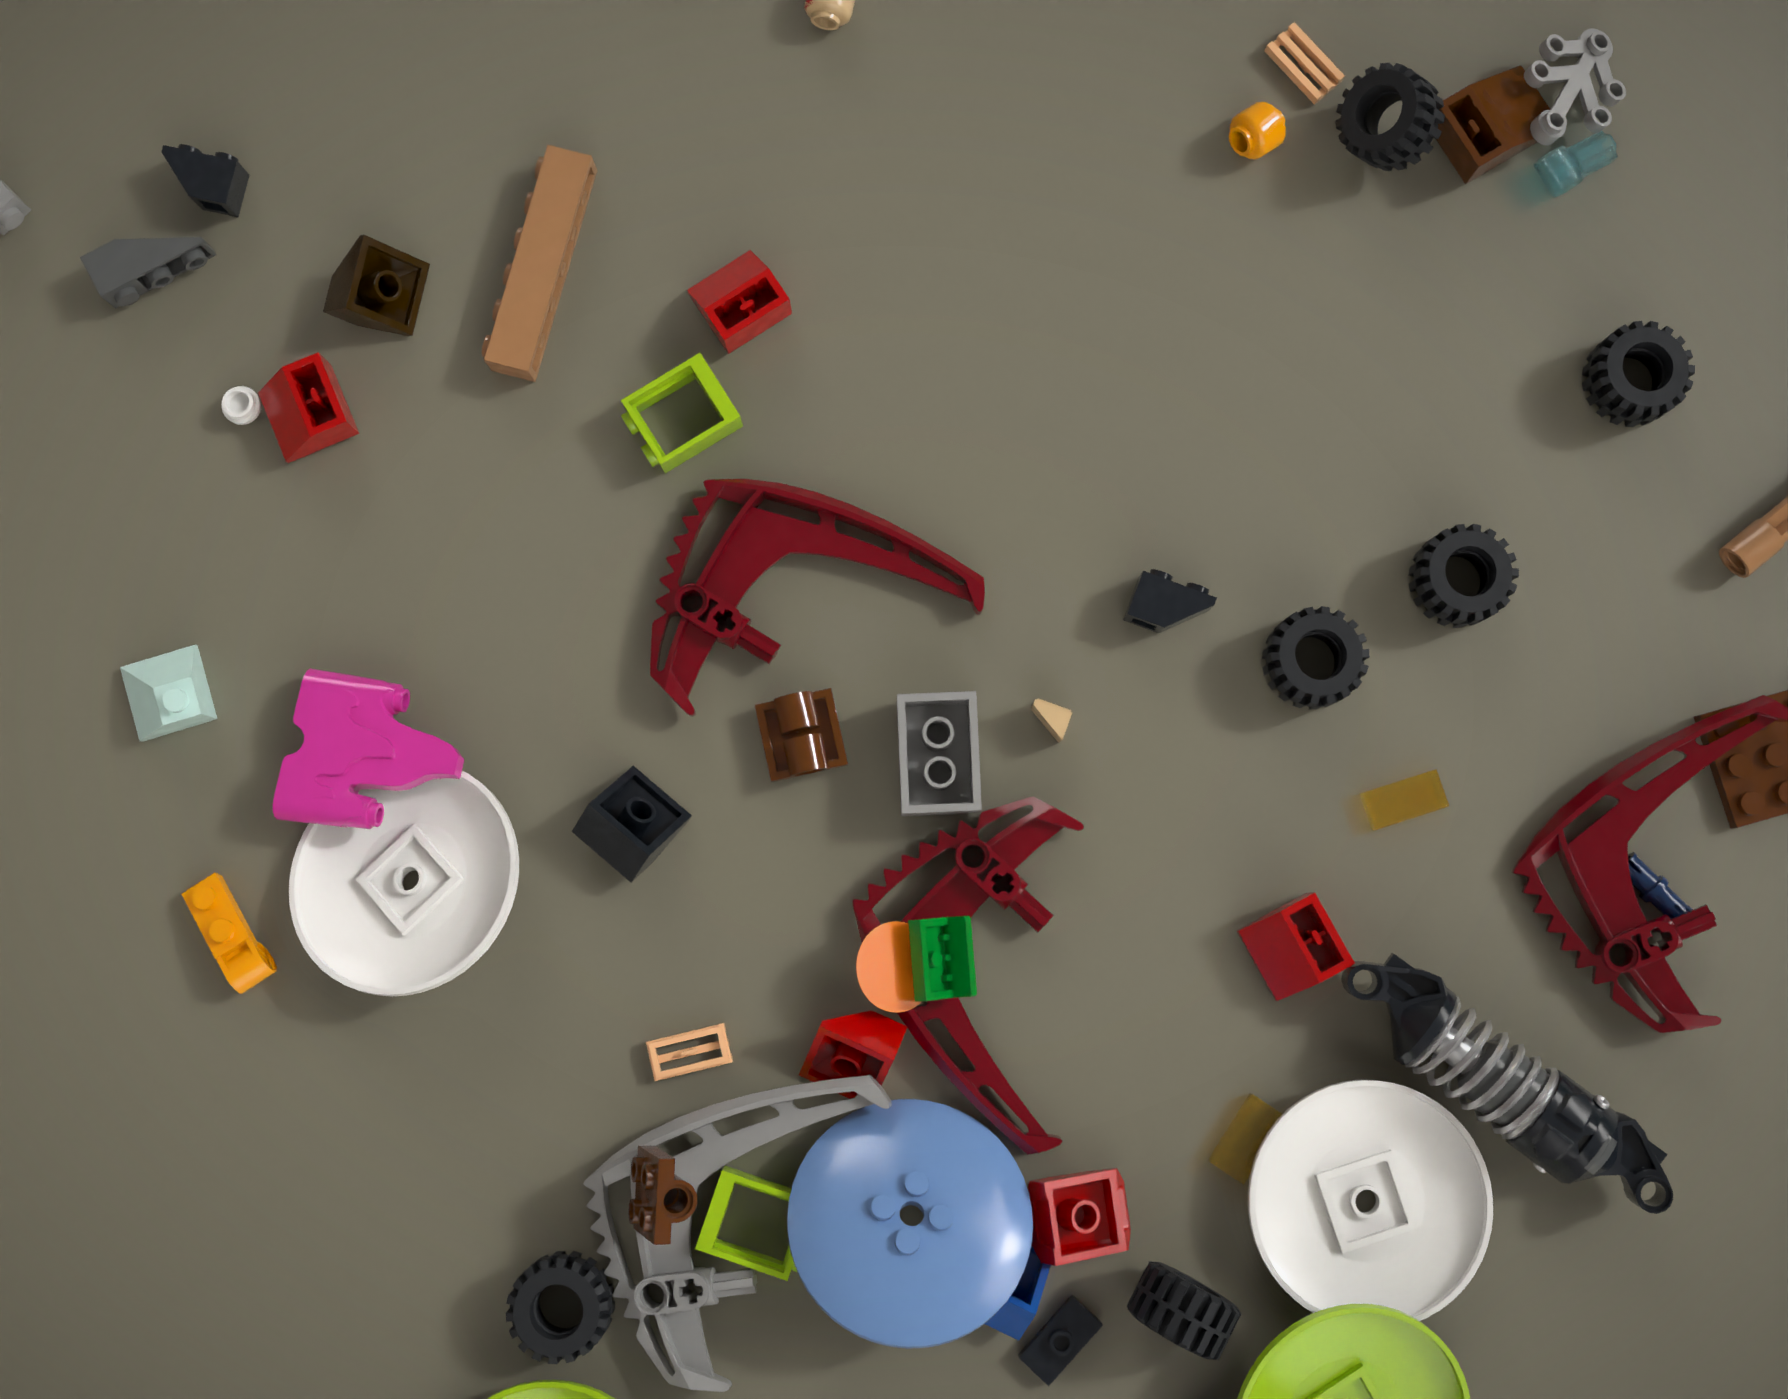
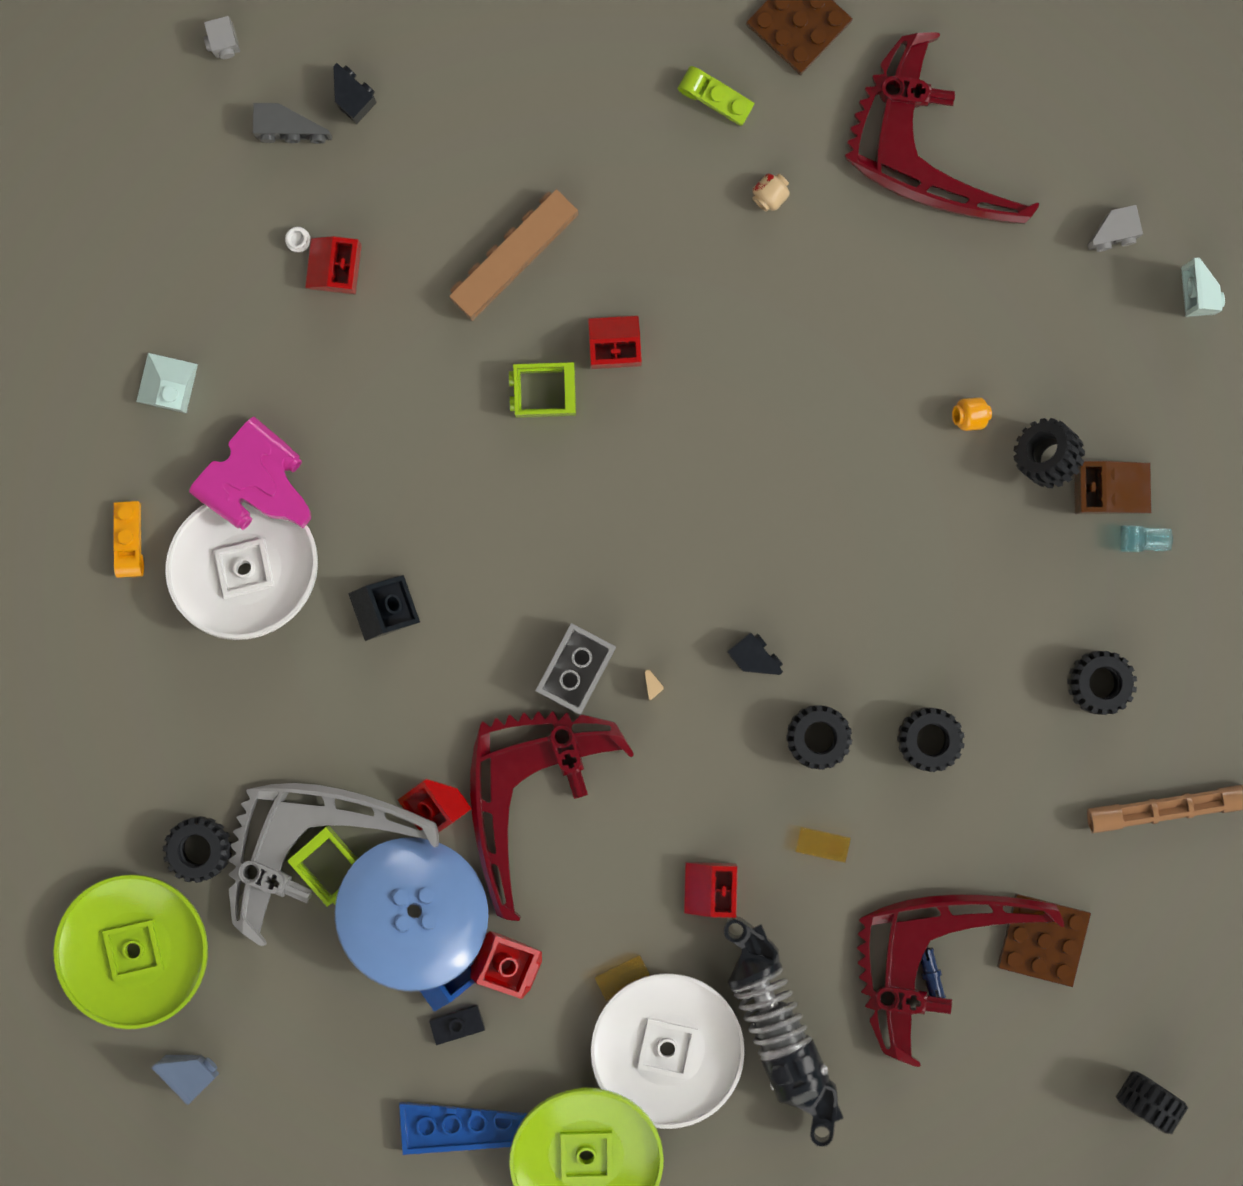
camera: 30 degrees right, 5 degrees up
(377, 287) = (413, 216): dark brown slope -> none
(656, 1059) = (368, 749): light nougat tile -> none
(659, 1195) = (284, 821): reddish brown plate -> none
(754, 545) = (540, 490): dark red piece -> none
(801, 734) = (506, 612): reddish brown plate -> none
(886, 968) = (483, 772): orange sticker -> none
(942, 958) = (511, 782): green bracket -> none
(1183, 1310) = (531, 1047): black tyre -> none
(1316, 57) = (1034, 384): light nougat tile -> none
(1592, 51) = (1174, 492): light grey plant -> none

